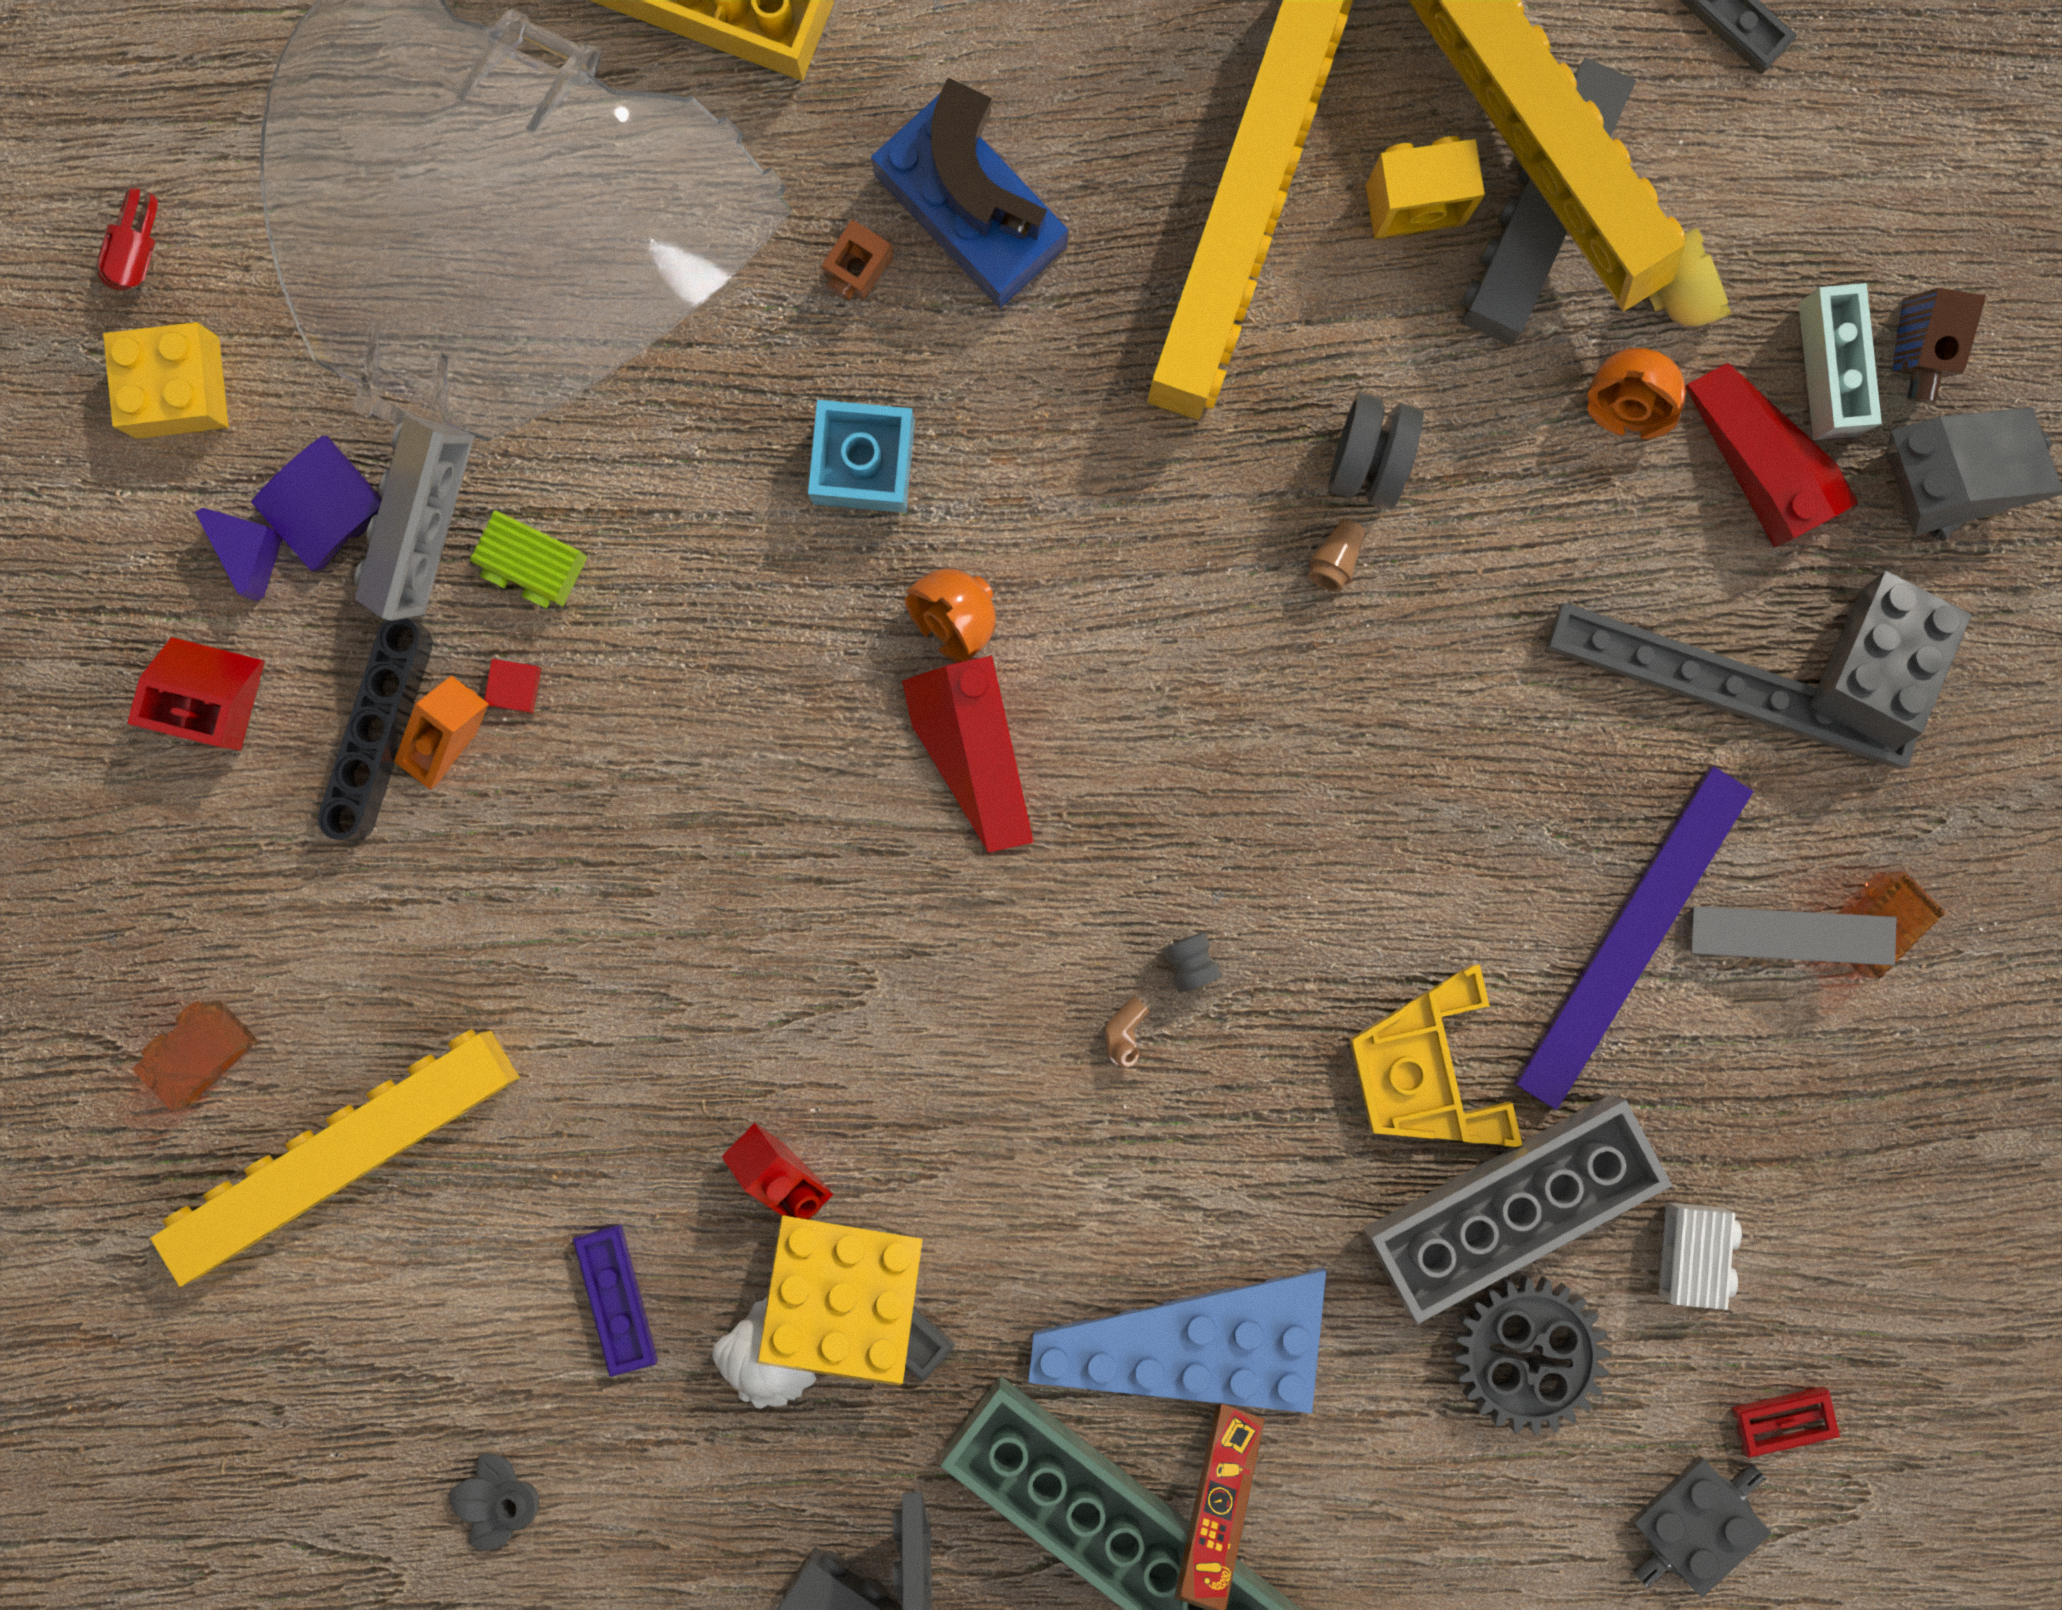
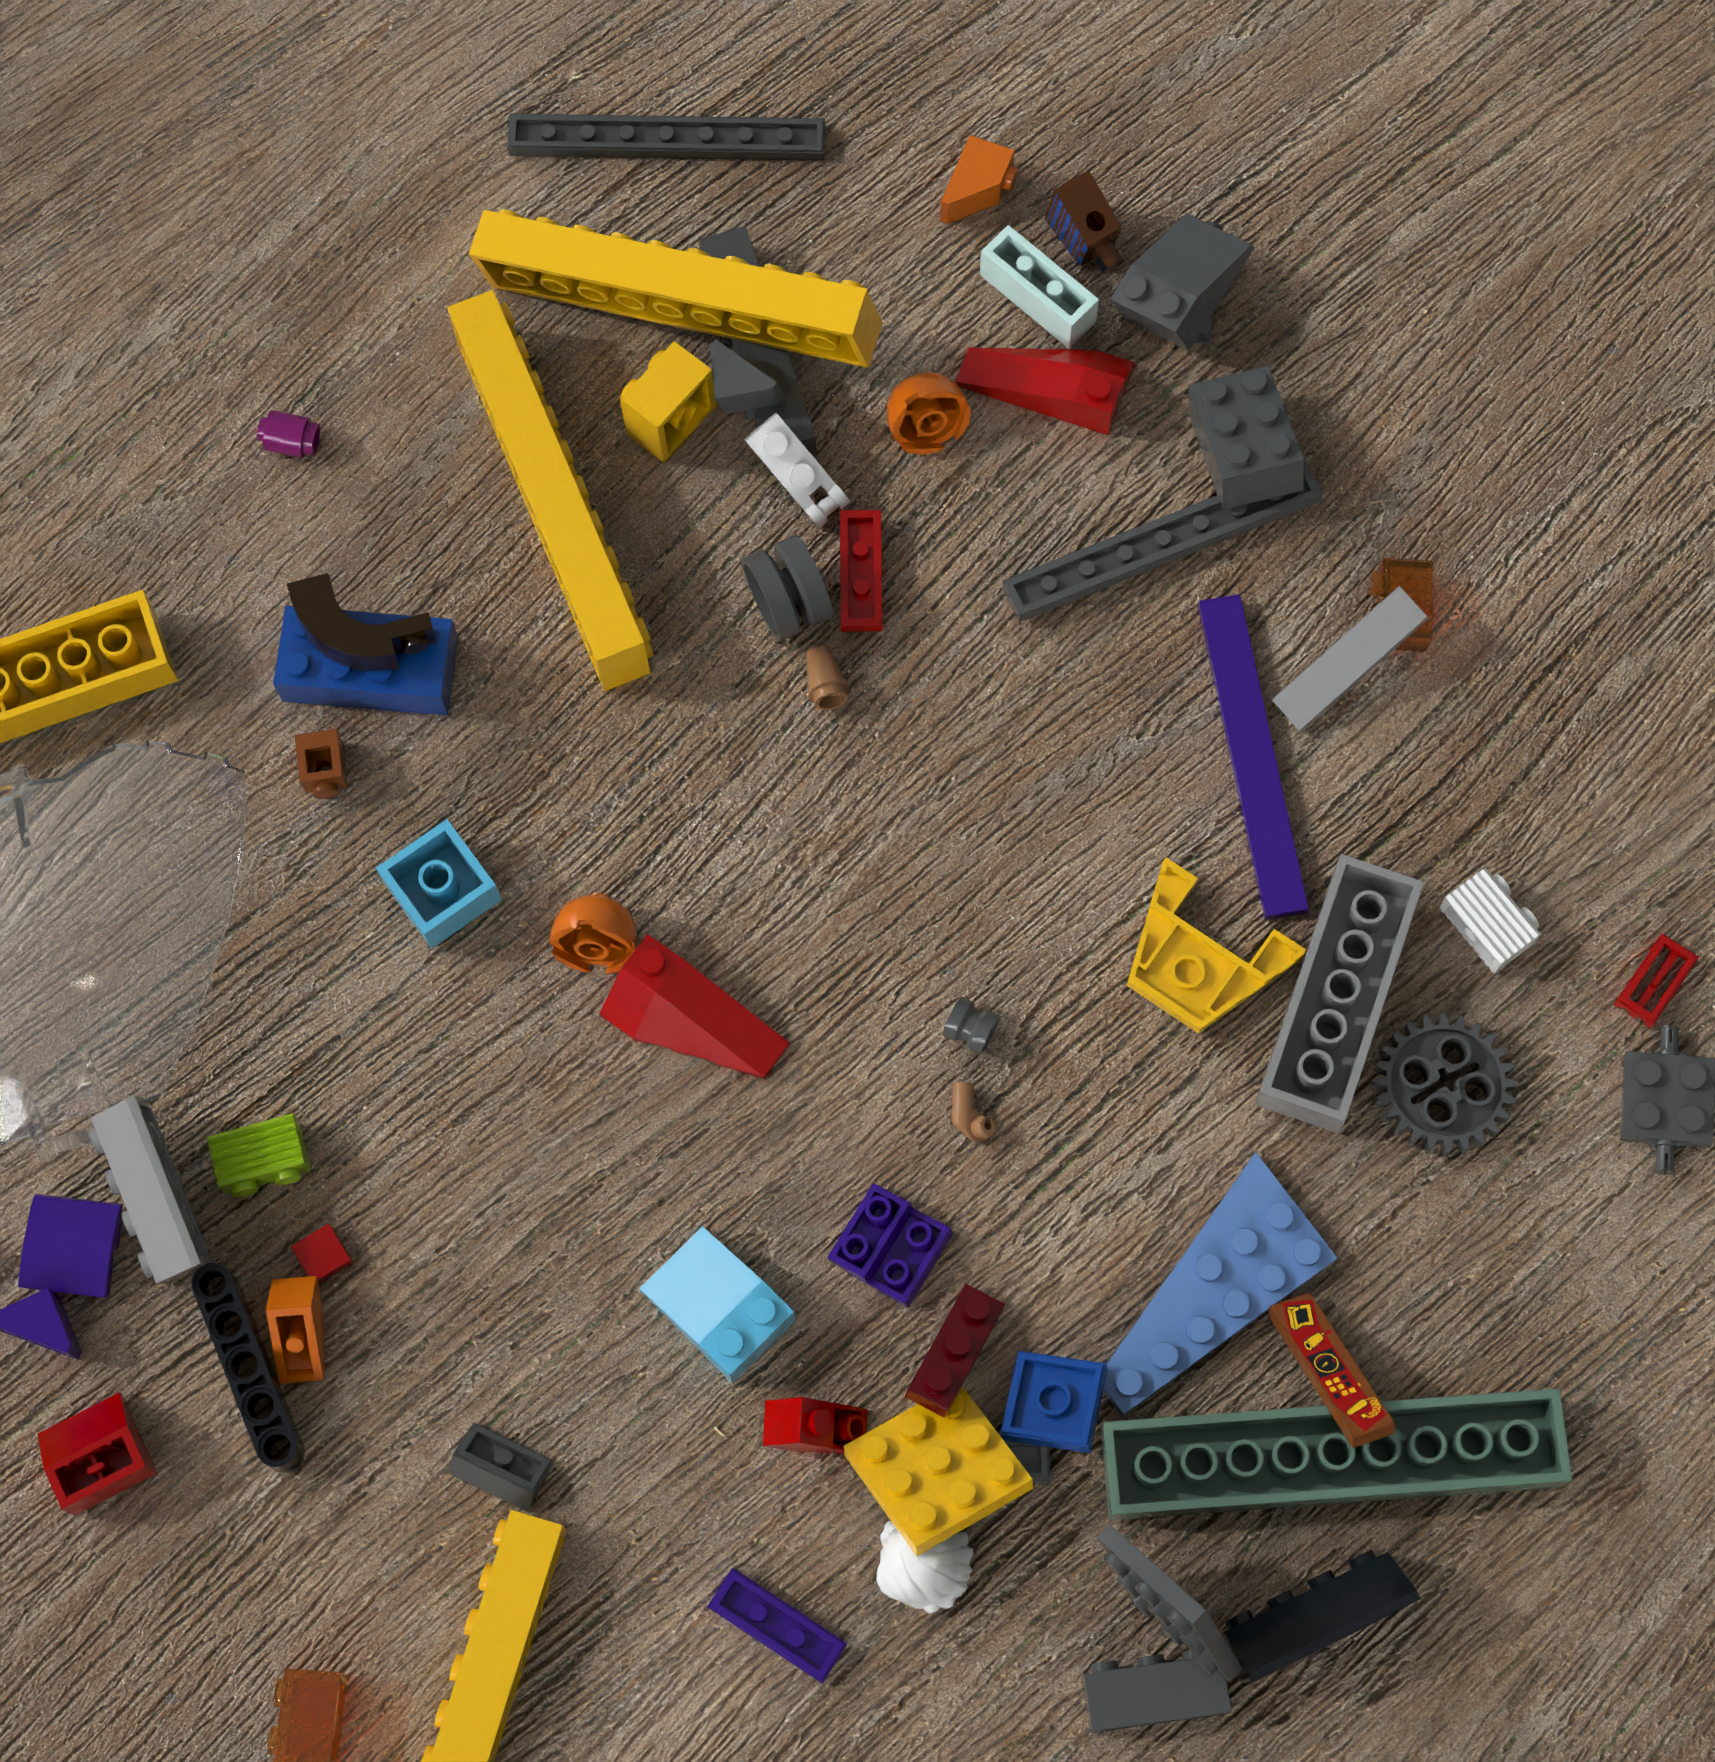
camera: 35 degrees left, 15 degrees down
(510, 982) = (500, 1466): none -> dark grey slope
(787, 1008) = (718, 1304): none -> medium azure slope
(939, 1217) = (954, 1350): none -> dark red plate
(966, 1081) = (890, 1245): none -> dark purple slope
(981, 1326) = (1054, 1401): none -> blue tile
(1453, 486) = (861, 571): none -> red plate
(1479, 346) = (796, 468): none -> white plate
(1498, 227) = (739, 383): none -> dark grey slope
(1696, 291) = (904, 319): light yellow cylinder -> none
(1880, 213) = (978, 179): none -> orange slope

